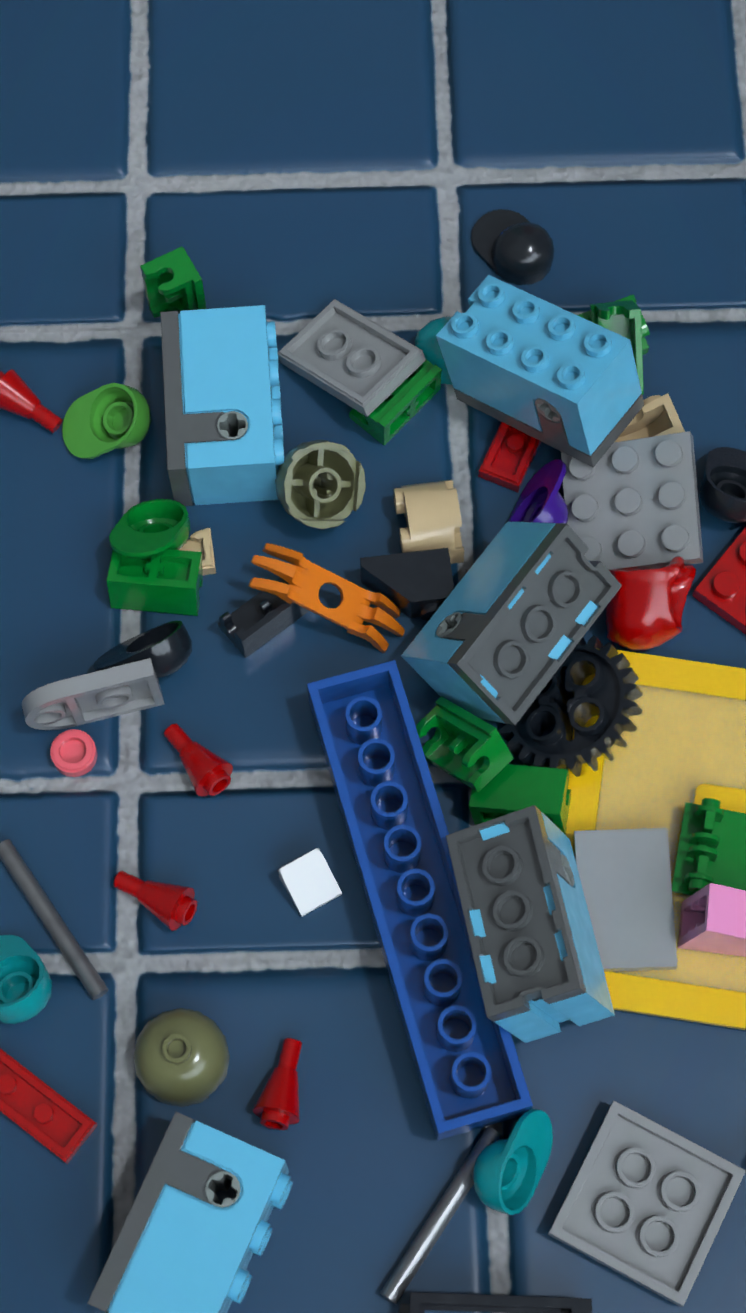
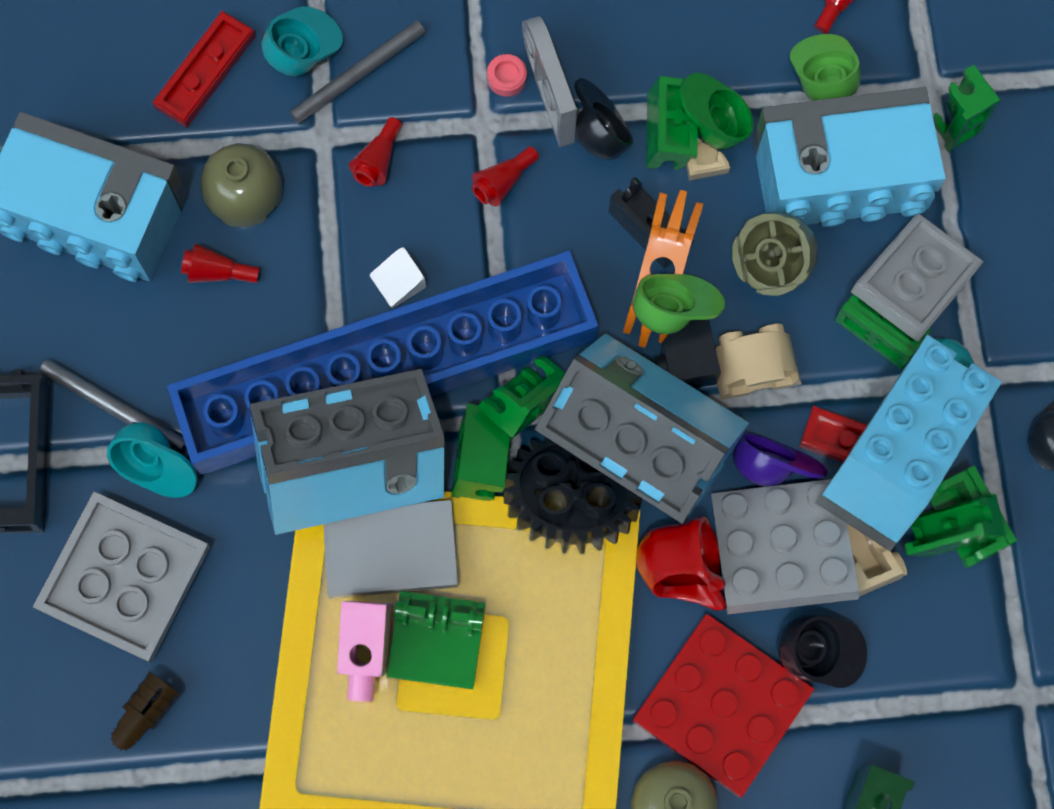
camera: 85 degrees right, 5 degrees up
(373, 579) = (672, 300): none -> bright green cap

